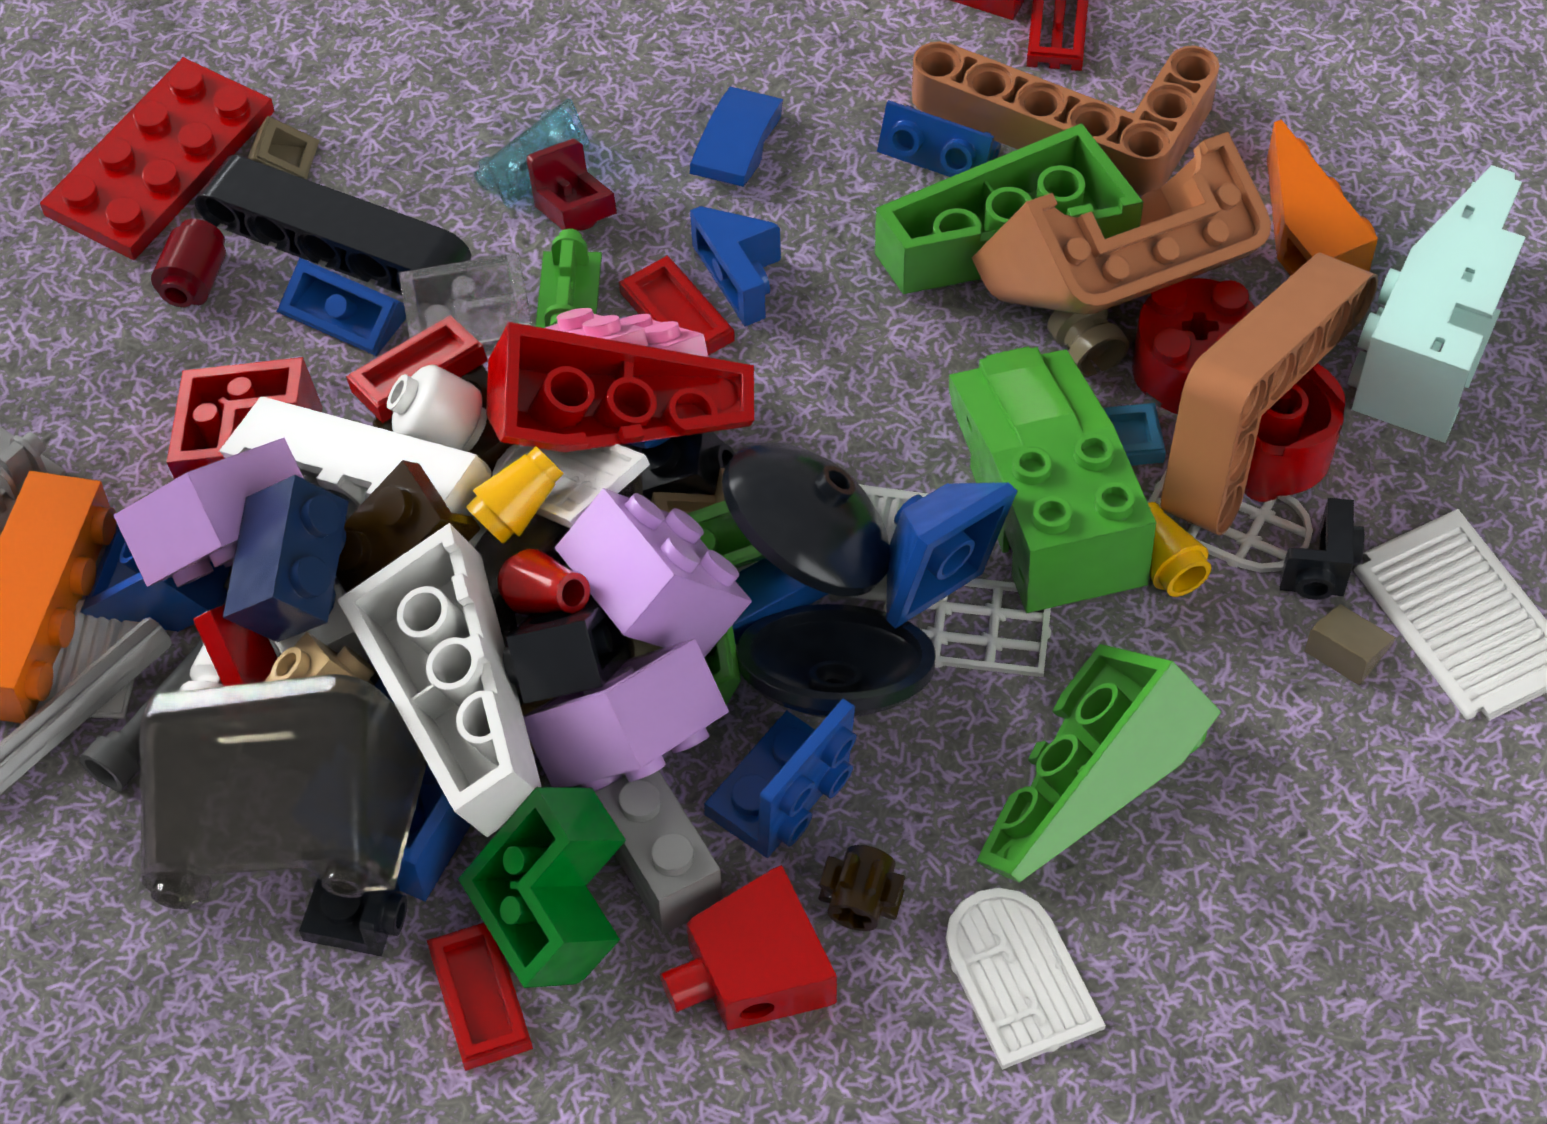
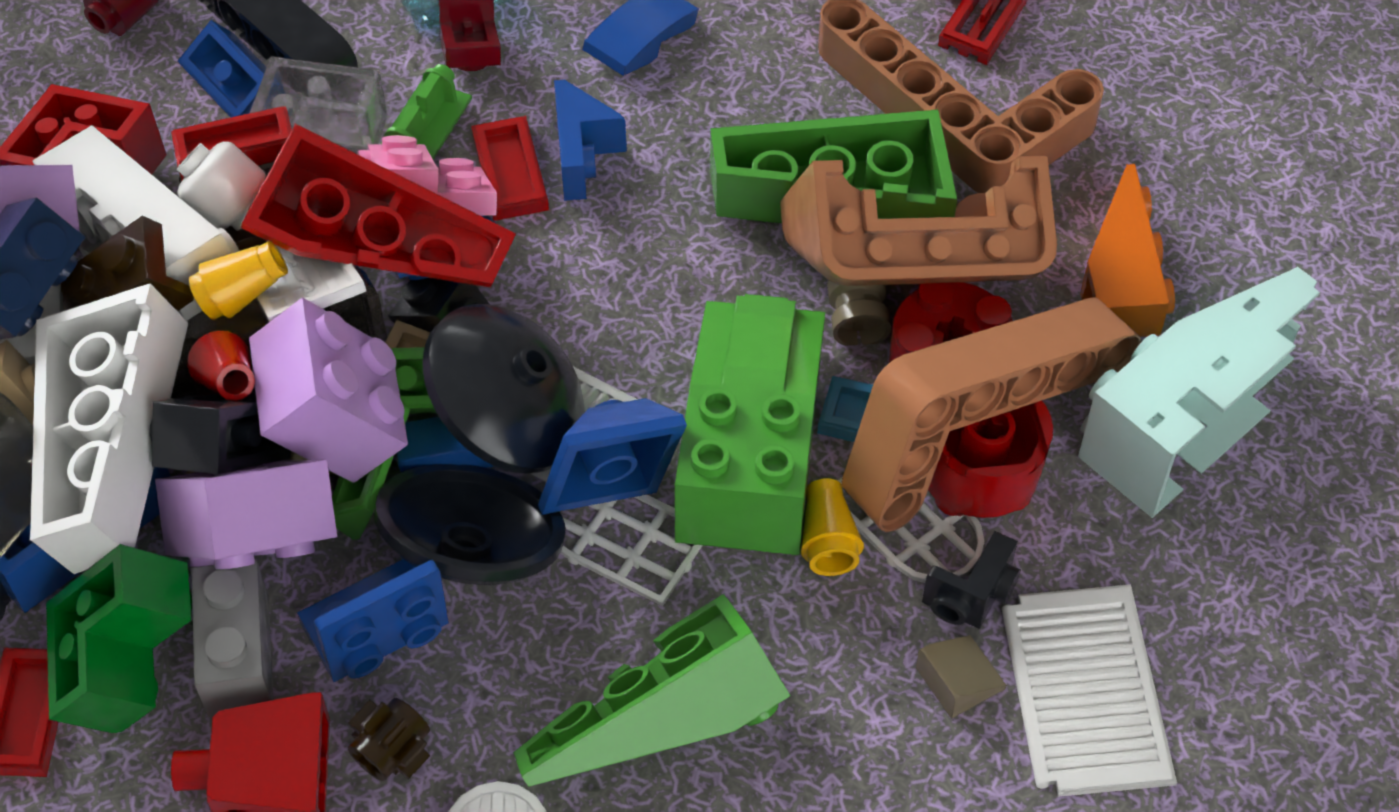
camera: 20 degrees right, 0 degrees up
(933, 141) = (811, 85): blue hinge -> none

